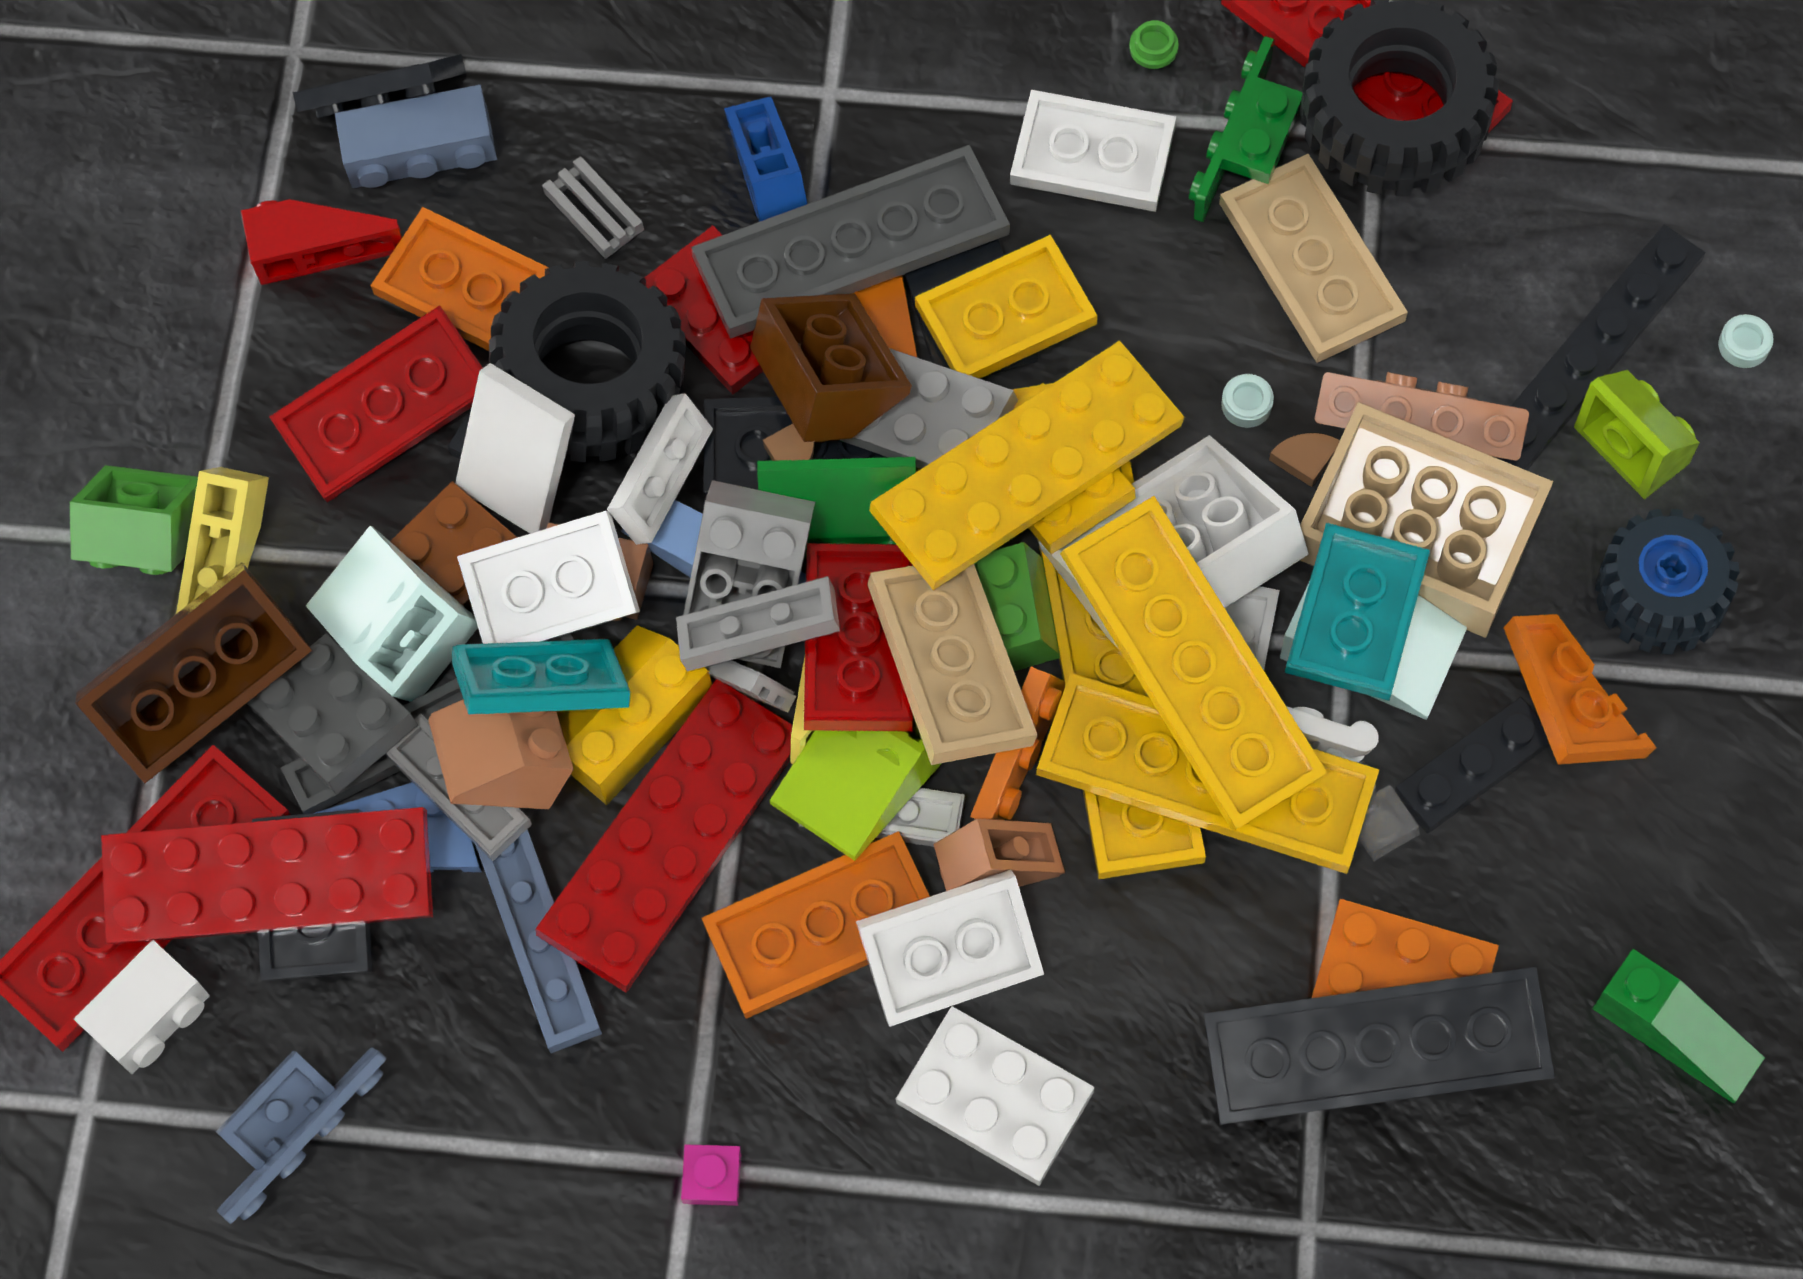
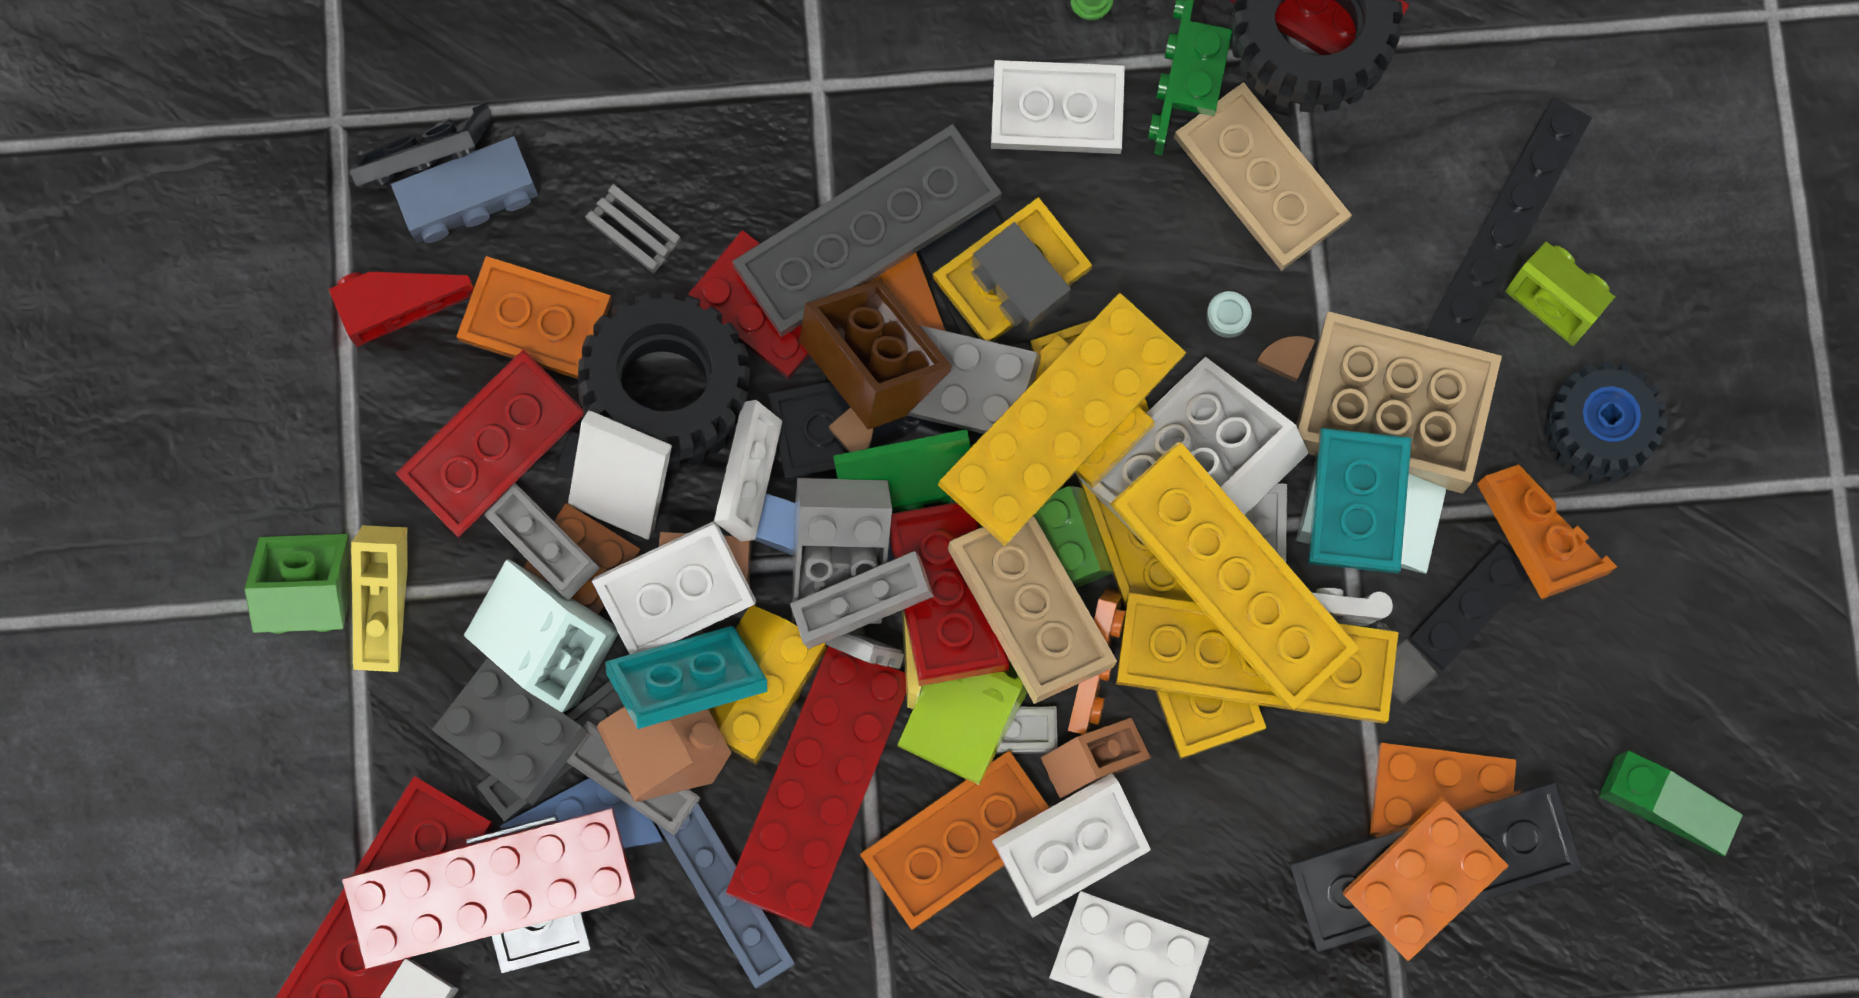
camera: 15 degrees left, 10 degrees up
(192, 673) = (382, 716): reddish brown slope -> none
(414, 514) = (541, 541): none -> light grey tile
(766, 158) = (777, 162): blue slope -> none
(1010, 311) = (1019, 278): none -> dark grey brick
(1362, 1054) = (1425, 879): none -> orange plate
(1447, 411) = (1390, 302): nougat bracket -> none
(1745, 341) = (1636, 191): light aqua tile -> none

